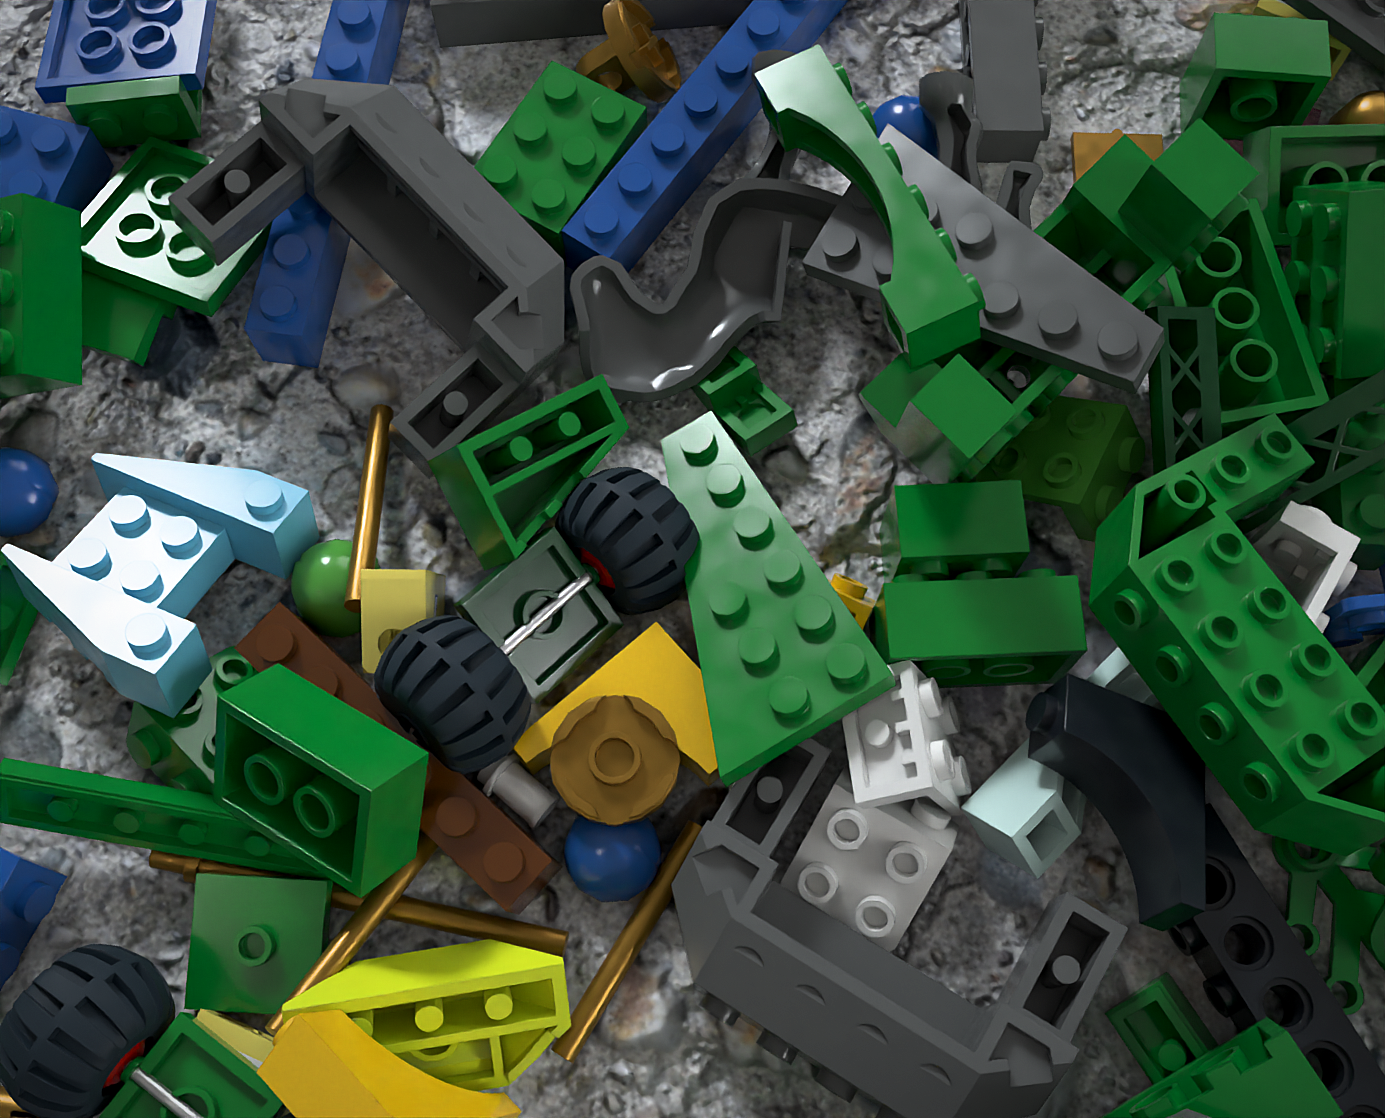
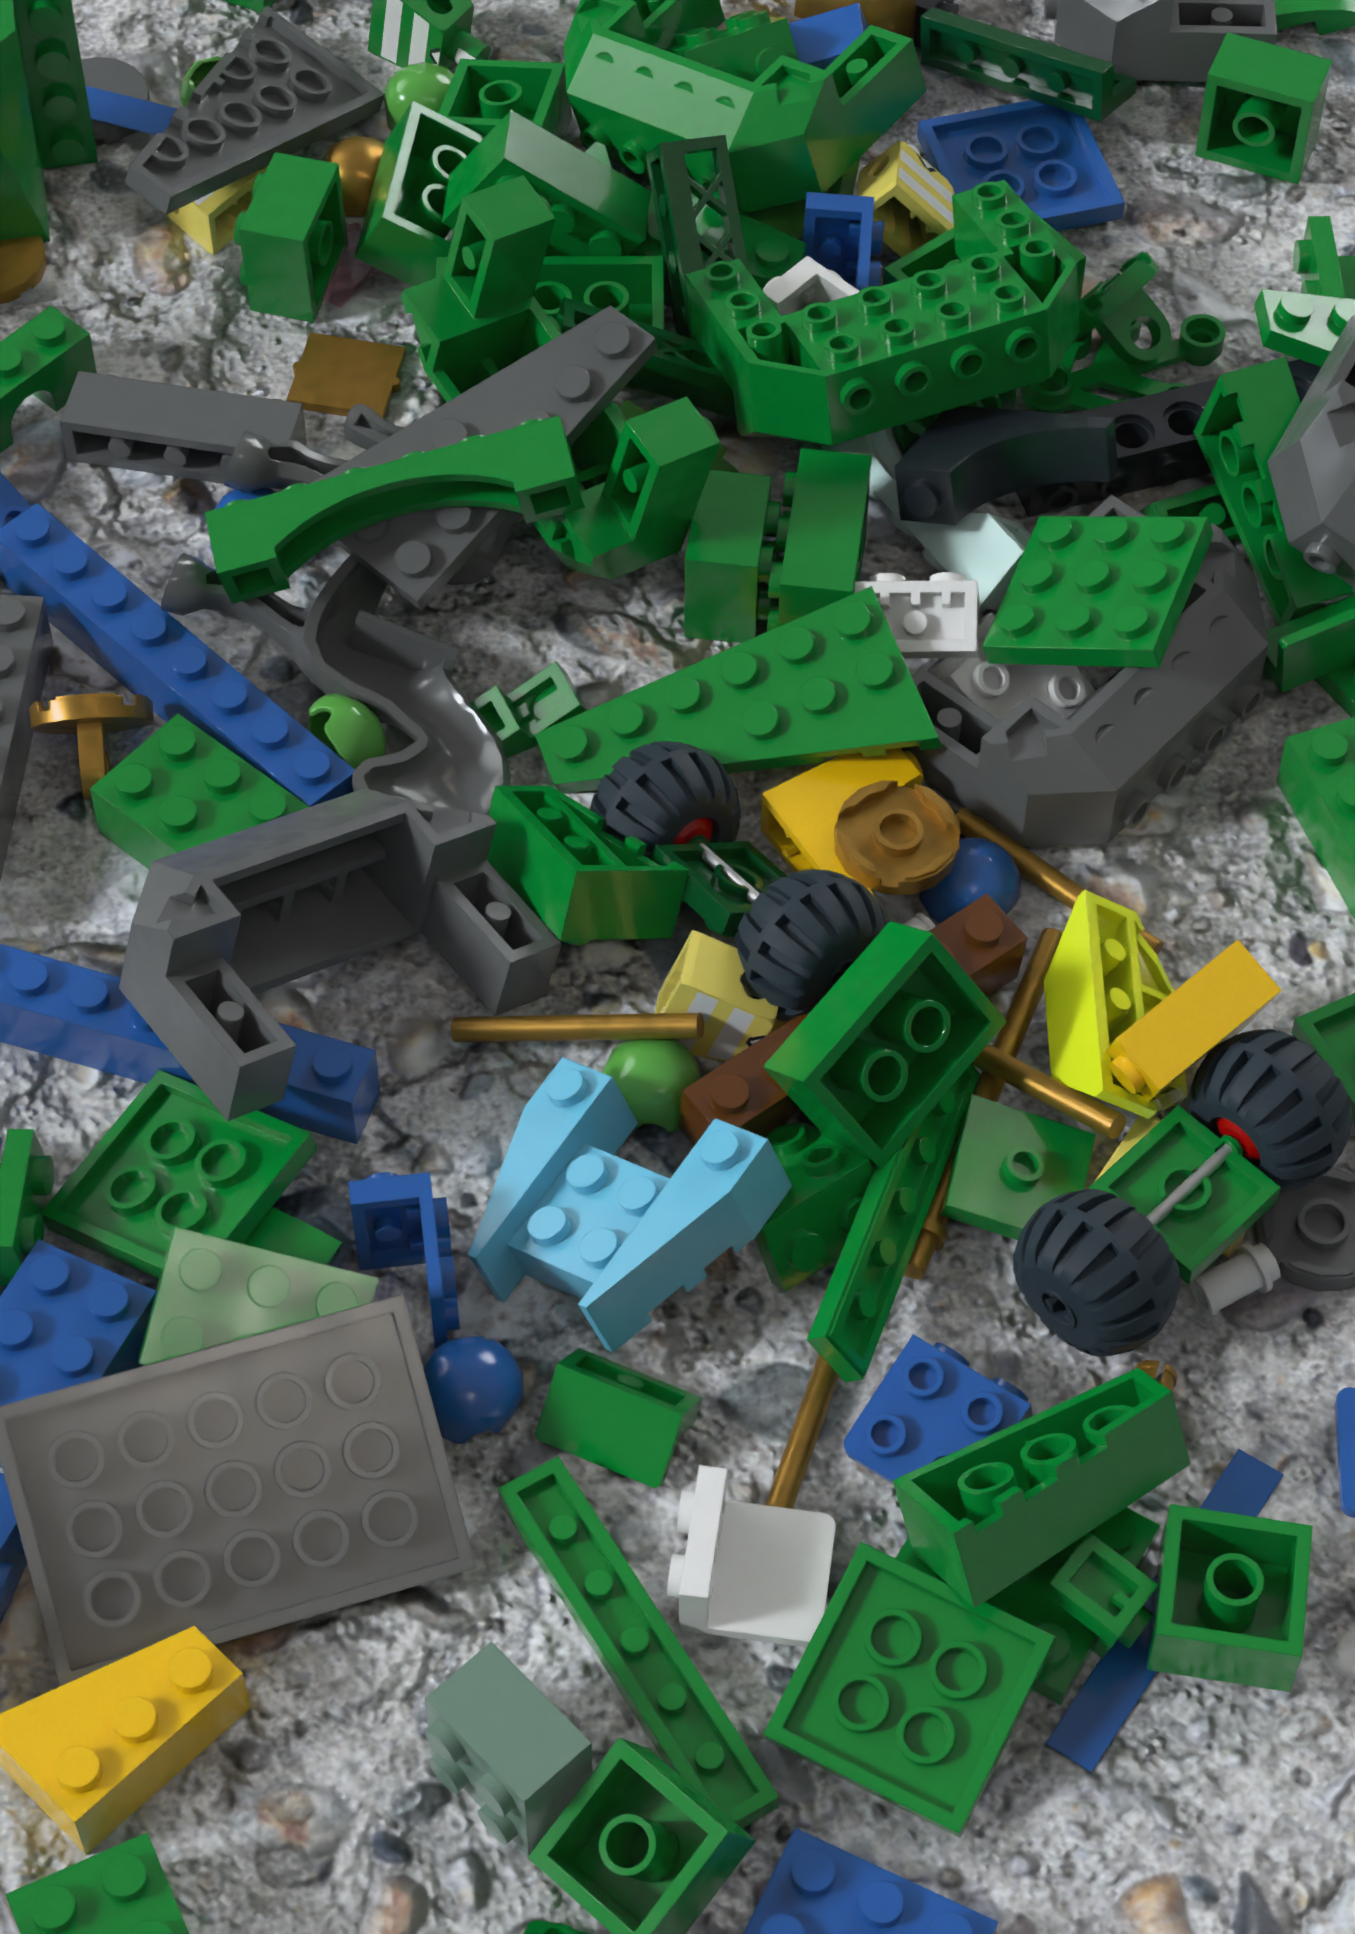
camera: 80 degrees left, 15 degrees down
(118, 419) = (404, 1226): none -> blue bracket
(658, 250) = (347, 728): none -> bright green hair
(954, 930) = (1098, 591): none -> green plate

